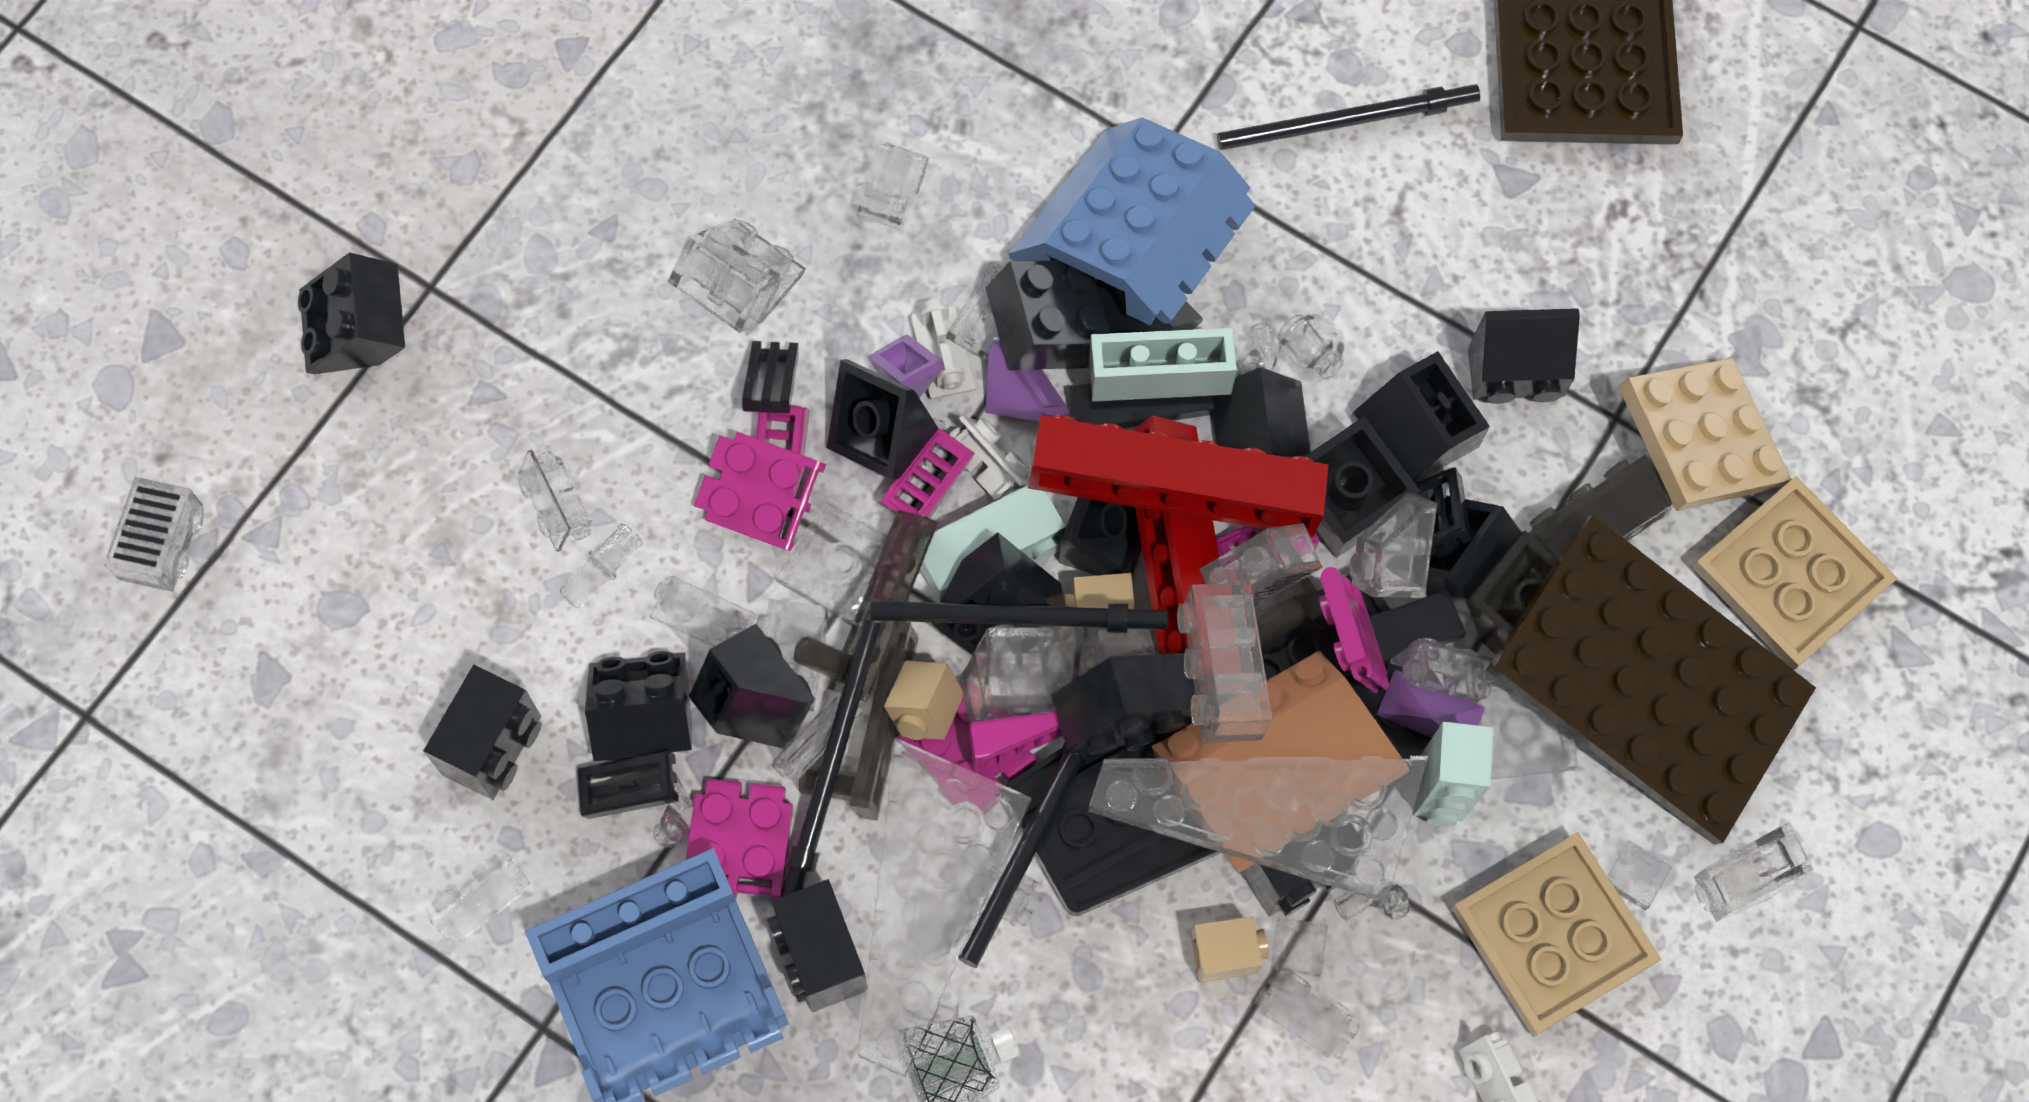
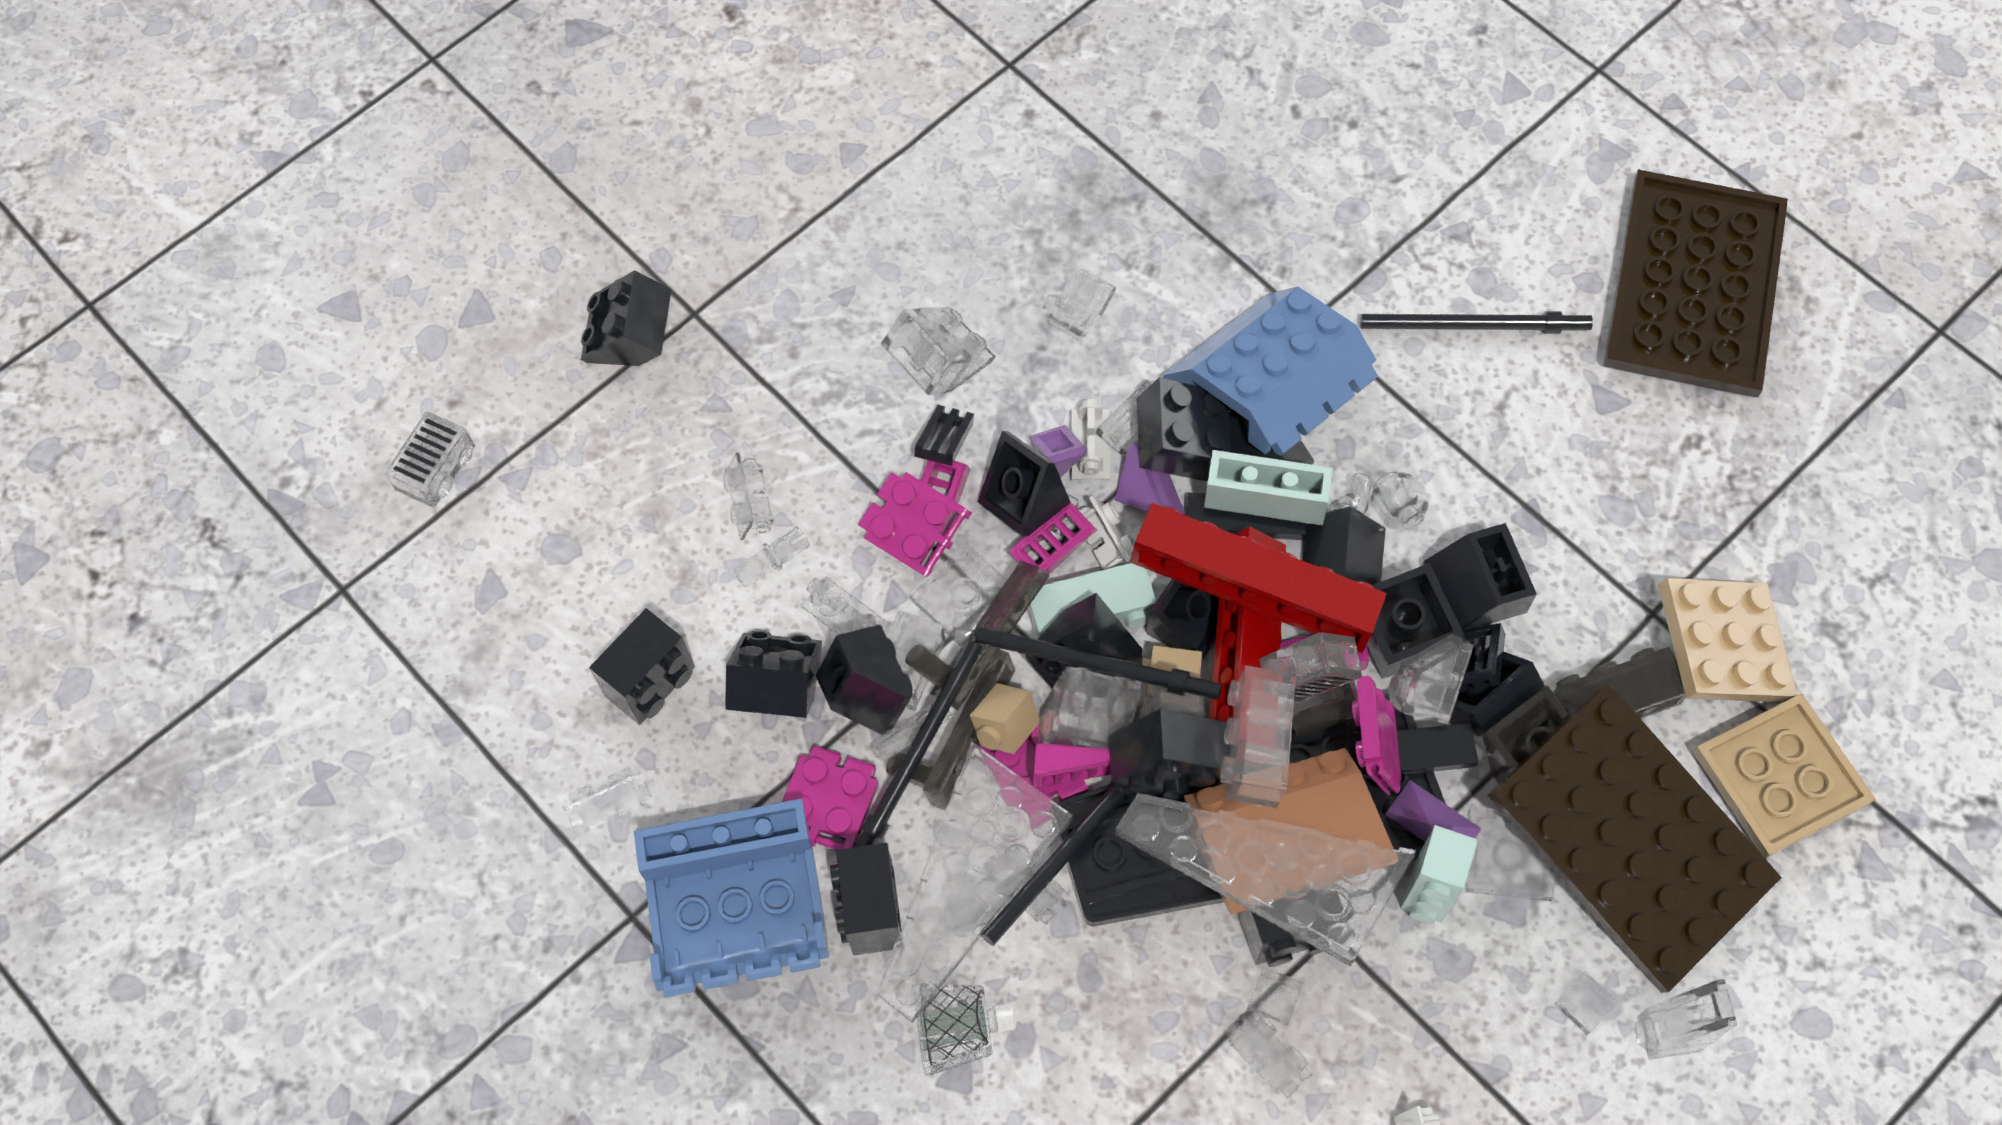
camera: 20 degrees right, 5 degrees down
(665, 779) = (774, 750): black tile -> none
(675, 820) = (782, 769): clear arm -> none
(1228, 949) = (1213, 982): tan brick -> none
(1352, 904) = (1362, 971): clear arm -> none
(1429, 664) = (1441, 780): clear hinge -> none
(1524, 354) = (1582, 542): black slope -> none
(1555, 934) = (1501, 1036): tan plate -> none

